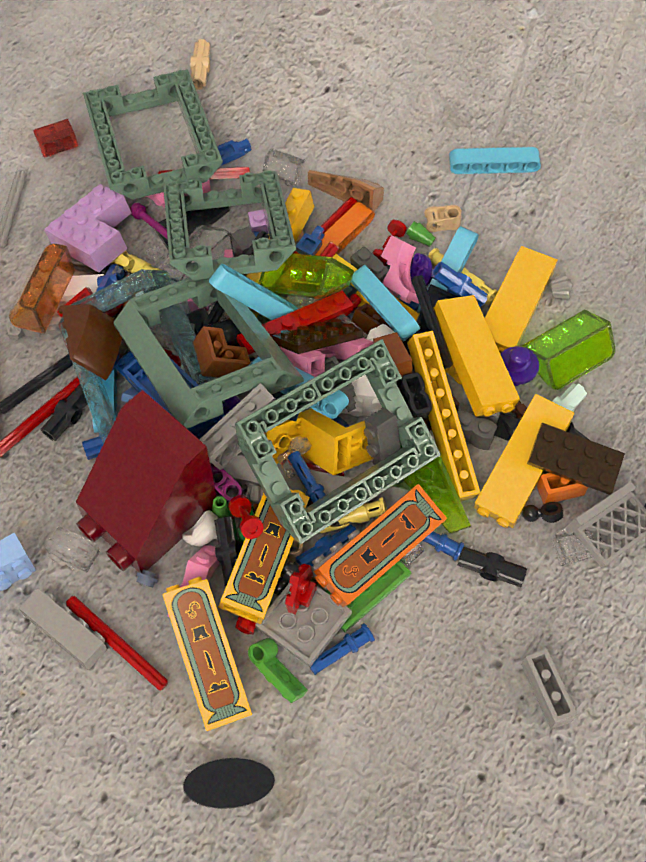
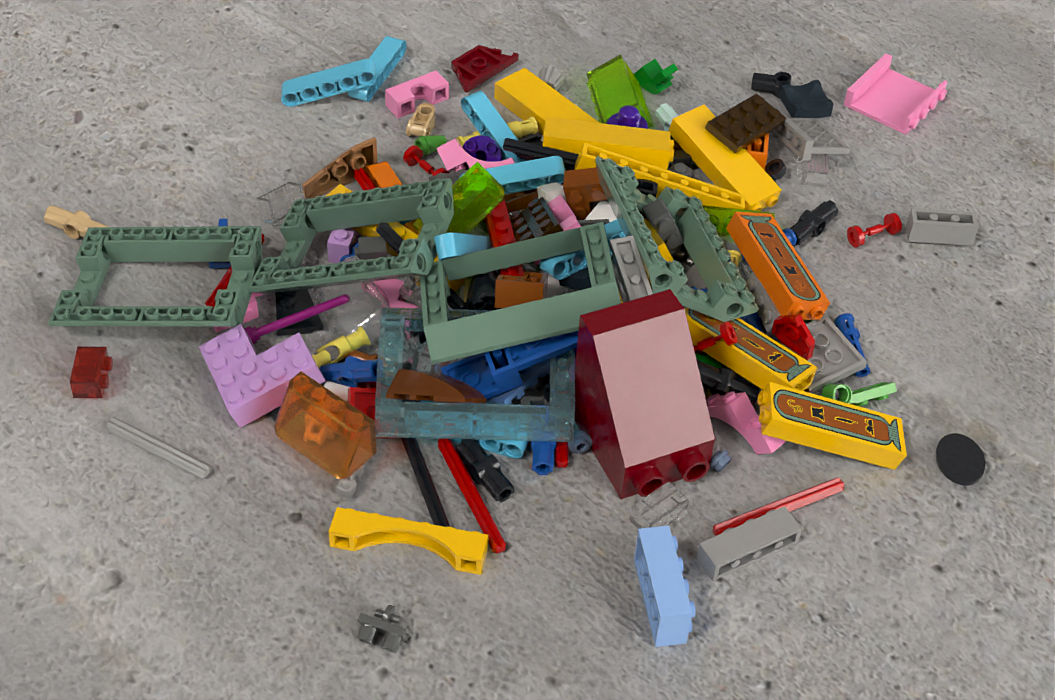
camera: 70 degrees left, 15 degrees down
(443, 135) = (328, 82): none -> medium azure beam
(457, 283) = (520, 126): blue piece -> none
(467, 191) = (402, 97): none -> bright pink arch
(512, 625) = (856, 235): none -> red wheel
(549, 228) = (480, 65): none -> dark red wing
(621, 366) = (654, 78): none -> green brick

